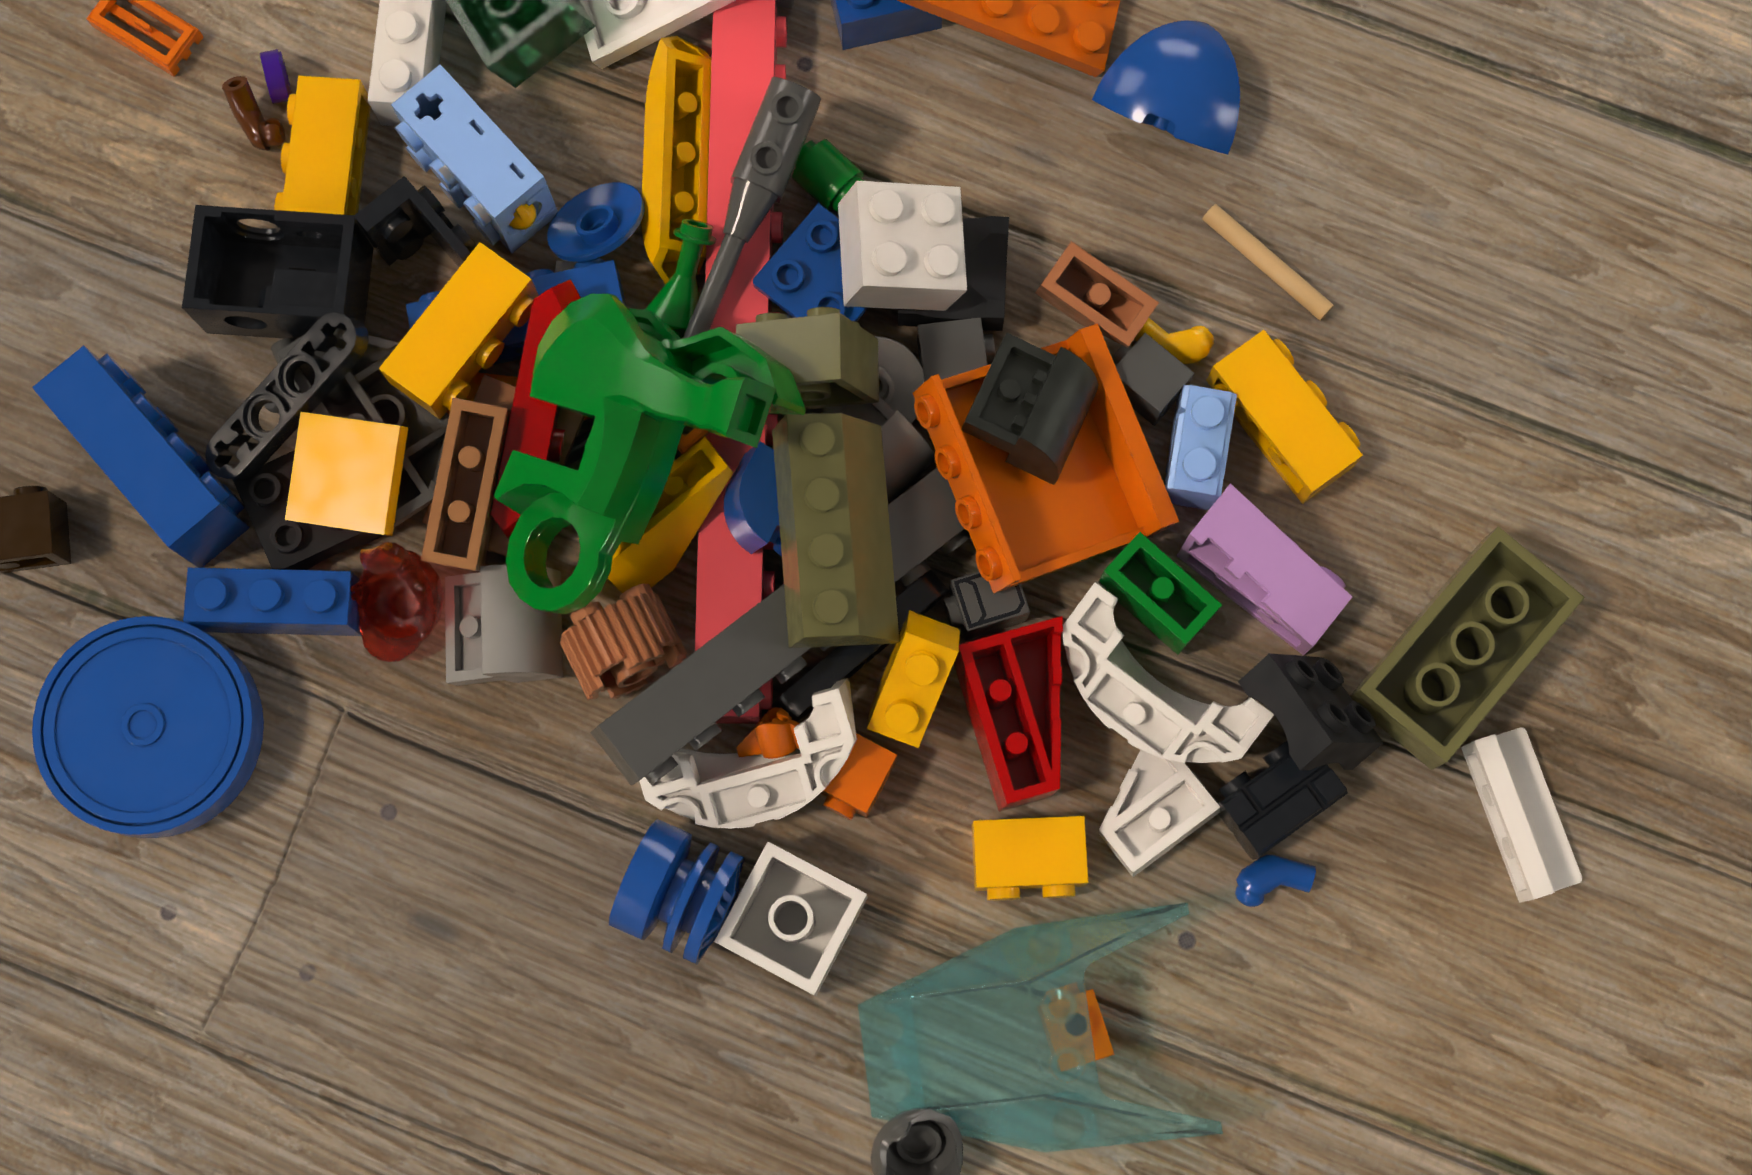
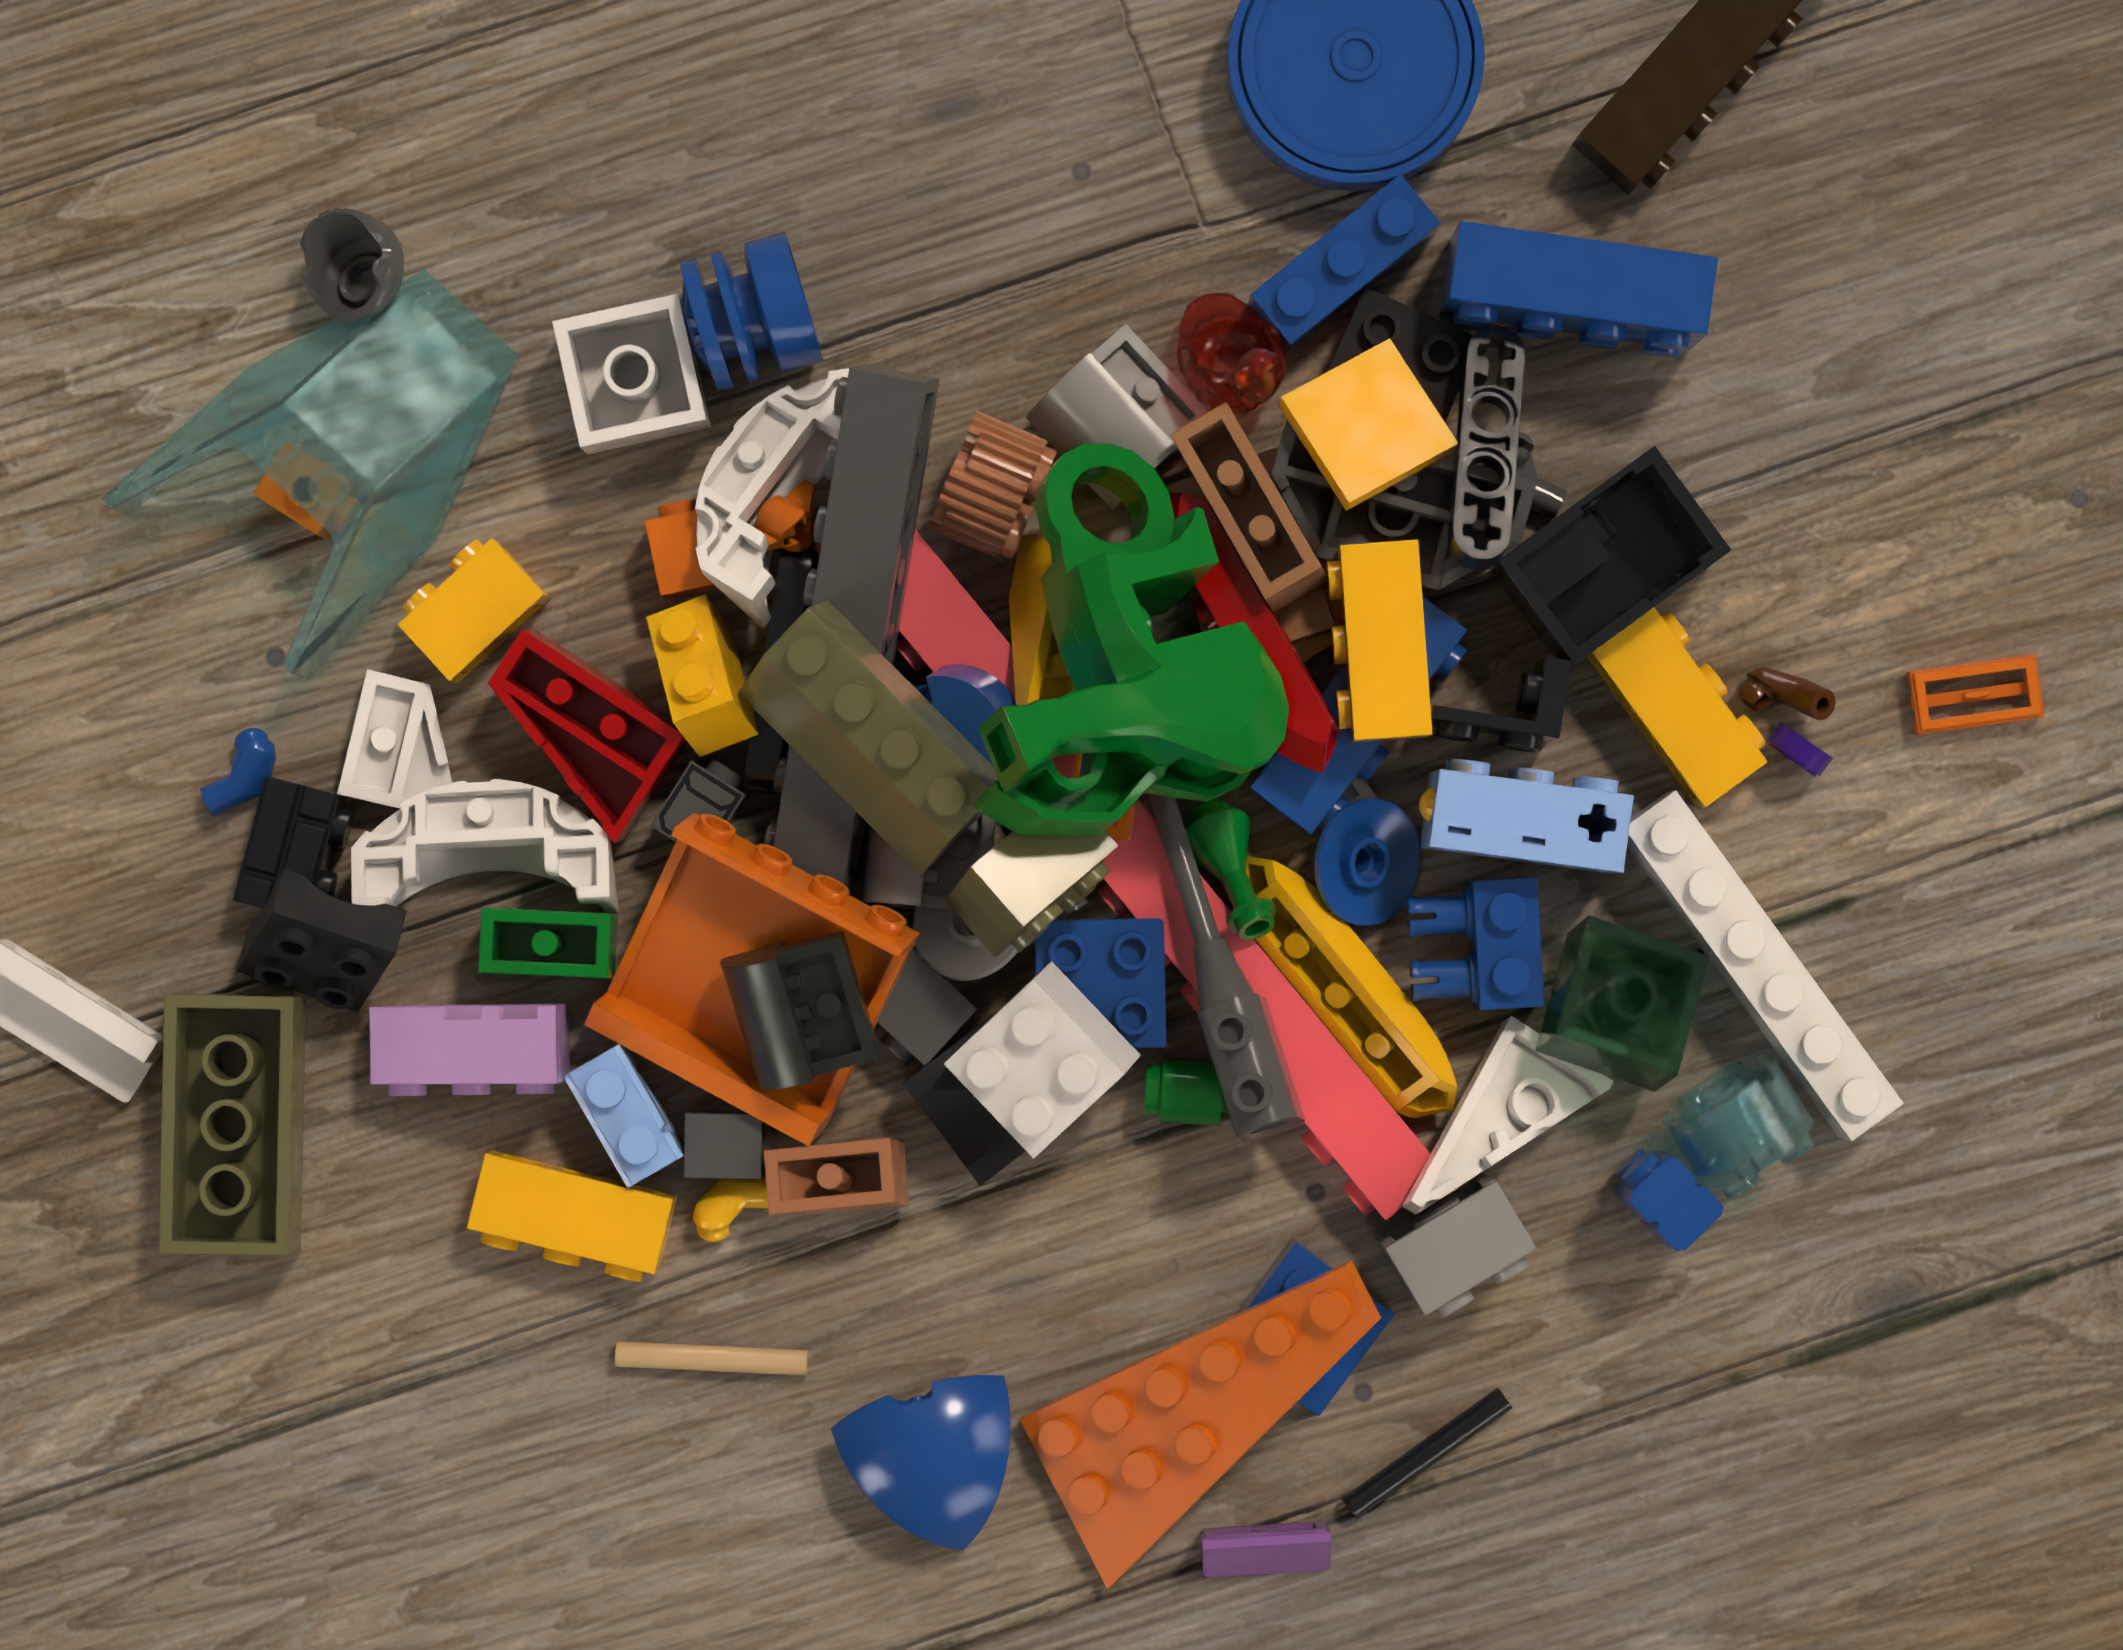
camera: 135 degrees right, 10 degrees up
(558, 106) = (1504, 945): none -> blue brick

